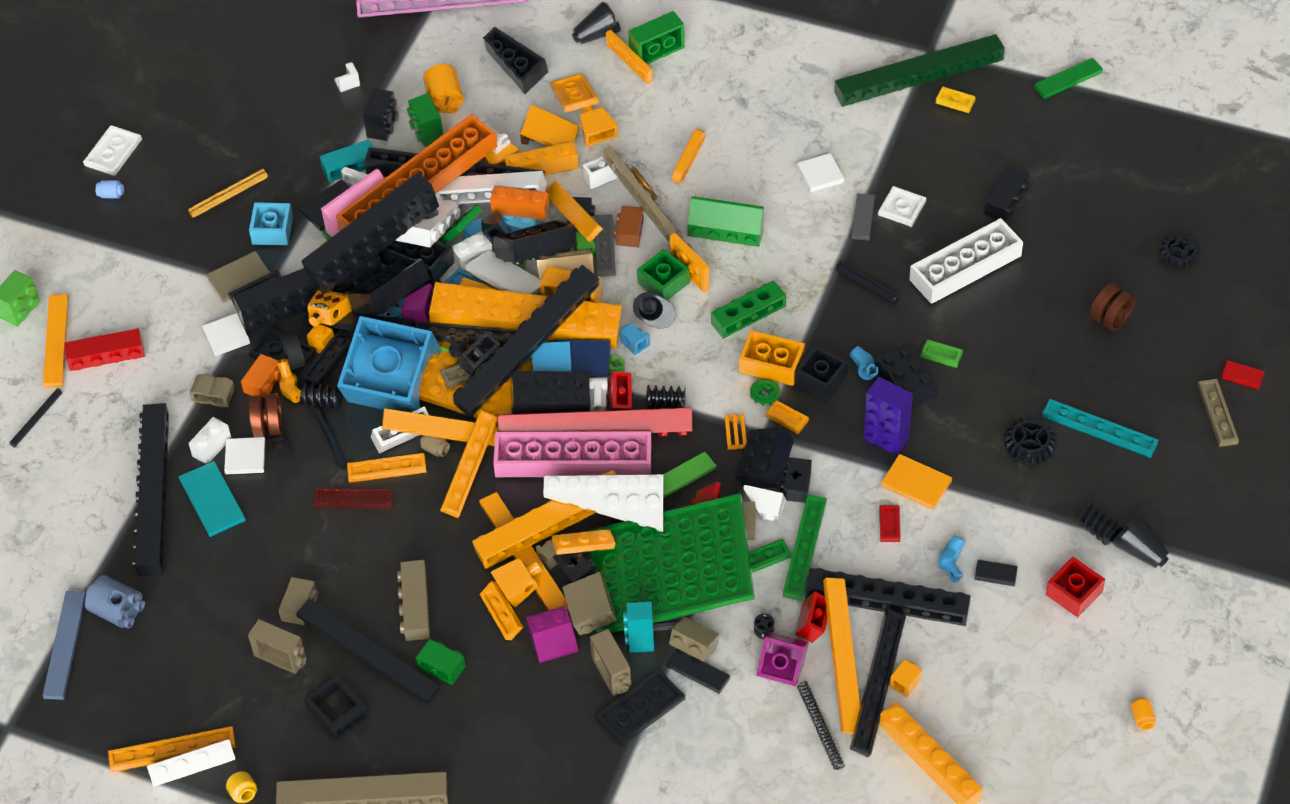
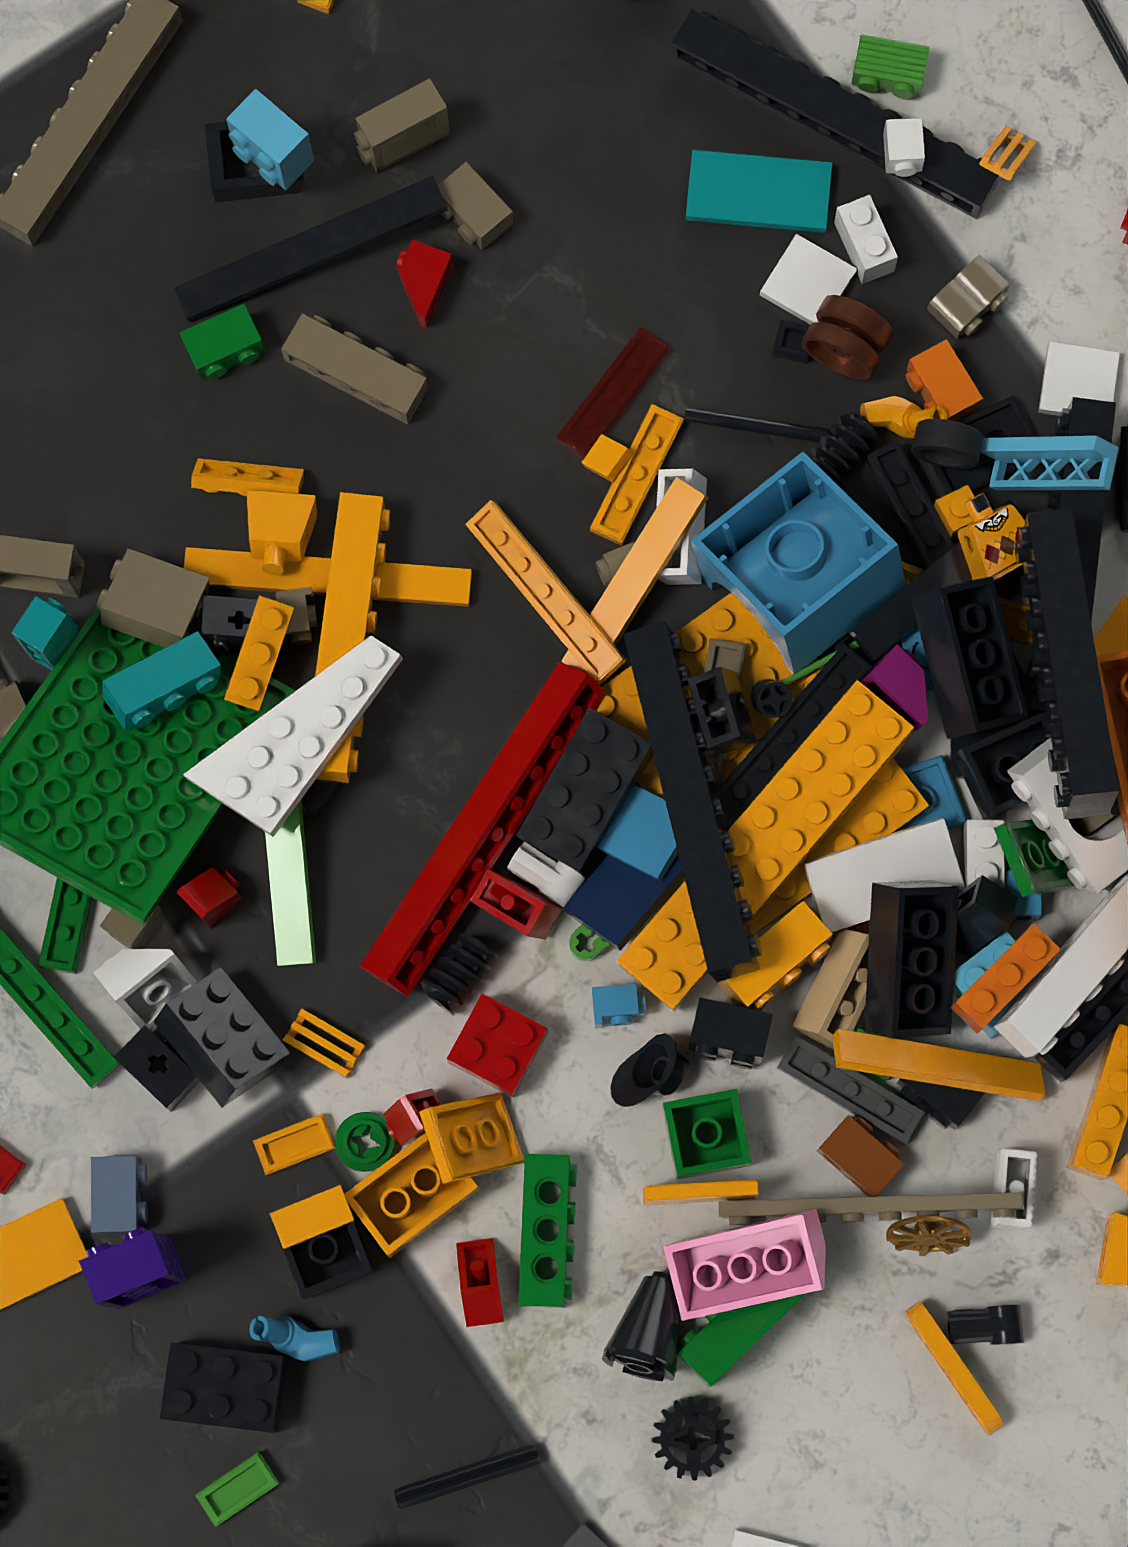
camera: 125 degrees right, 25 degrees up
(113, 480) = (890, 66): none -> bright green brick
(130, 409) = (1013, 143): none -> light orange tile
(156, 439) = (903, 146): none -> white brick
(272, 300) = (1046, 450): none -> medium azure fence
(326, 680) = (269, 140): none -> medium azure brick
(351, 598) = (423, 277): none -> red slope
(387, 479) = (606, 458): none -> light orange tile
(552, 634) = (154, 521): magenta slope -> none
(572, 453) = (446, 754): bright pink brick -> none
(615, 286) = (729, 1033): none -> black brick
(626, 569) = (161, 681): none -> teal brick
(661, 152) = (993, 1325): none -> black piece
(686, 366) = (497, 1045): none -> red brick
(704, 227) = (748, 1264): none -> bright pink slope
(731, 344) = (471, 1137): none -> light orange tile
(741, 373) = (404, 1118): none -> red slope
(757, 251) = (647, 1331): none -> black cone
(787, 218) = (692, 1456): none -> black gear
(787, 318) = (479, 1282): none -> red slope
(812, 374) = (312, 1217): none -> light orange tile
(863, 461) = (117, 1194): none -> sand blue brick

